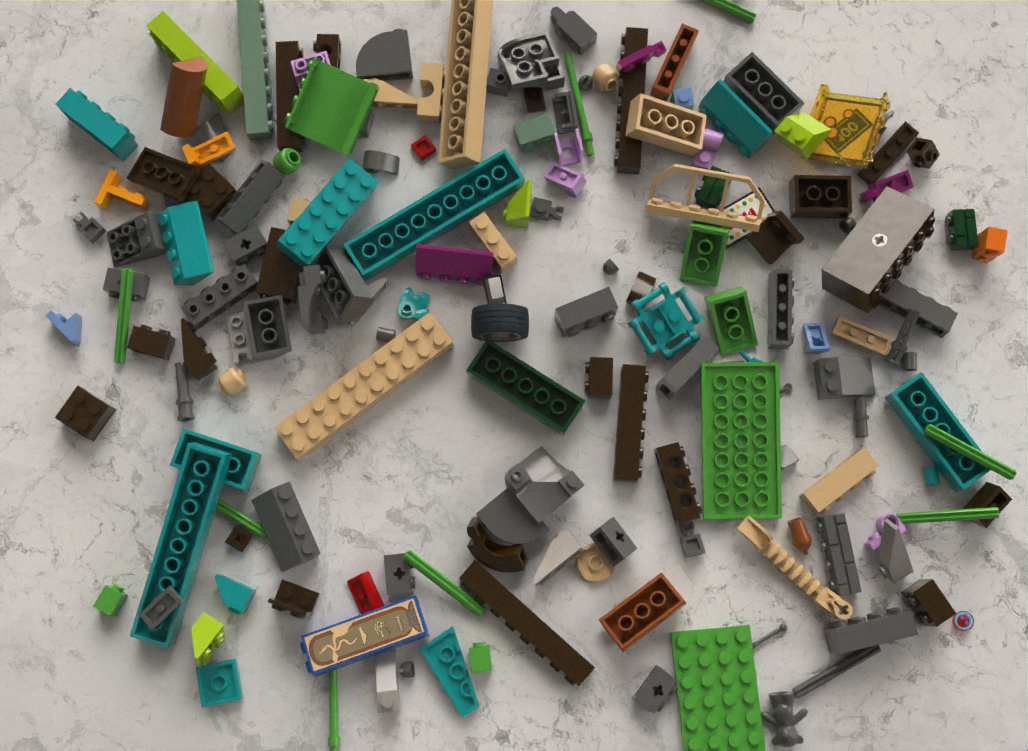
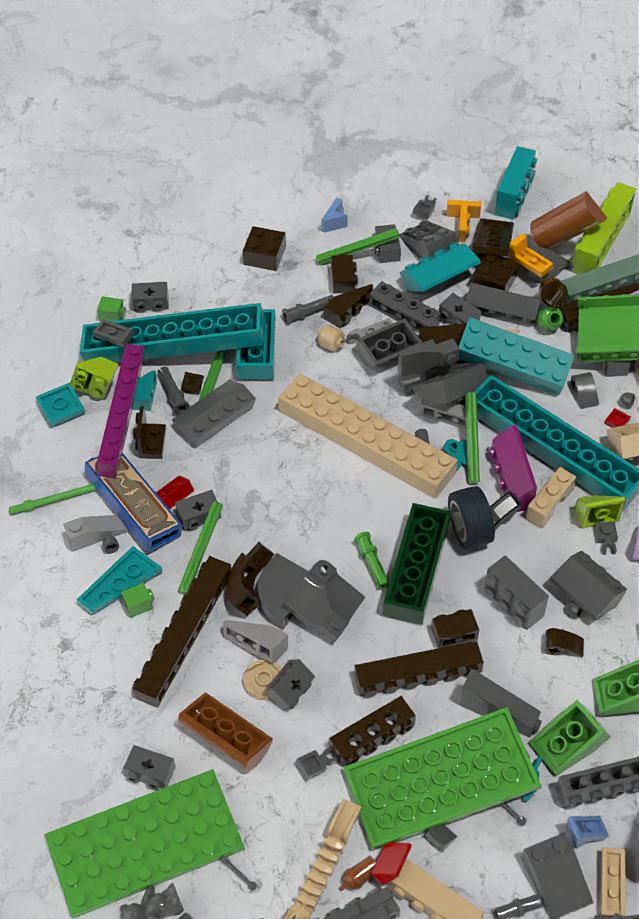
camera: 75 degrees right, 25 degrees down
(103, 563) = (150, 296): none -> dark grey brick
(249, 560) = (175, 395): none -> dark grey pin
(263, 146) = (553, 292): none -> dark brown piece
(263, 622) = (120, 411): none -> magenta brick
(404, 129) = (627, 399): none -> dark grey hinge
(406, 288) = (472, 438): none -> bright green axle
(496, 426) = (369, 552): none -> bright green pin
(596, 247) = (588, 585): none -> dark grey slope
(665, 321) = (539, 670): teal brick -> none
(801, 506) = (391, 861): none -> red slope

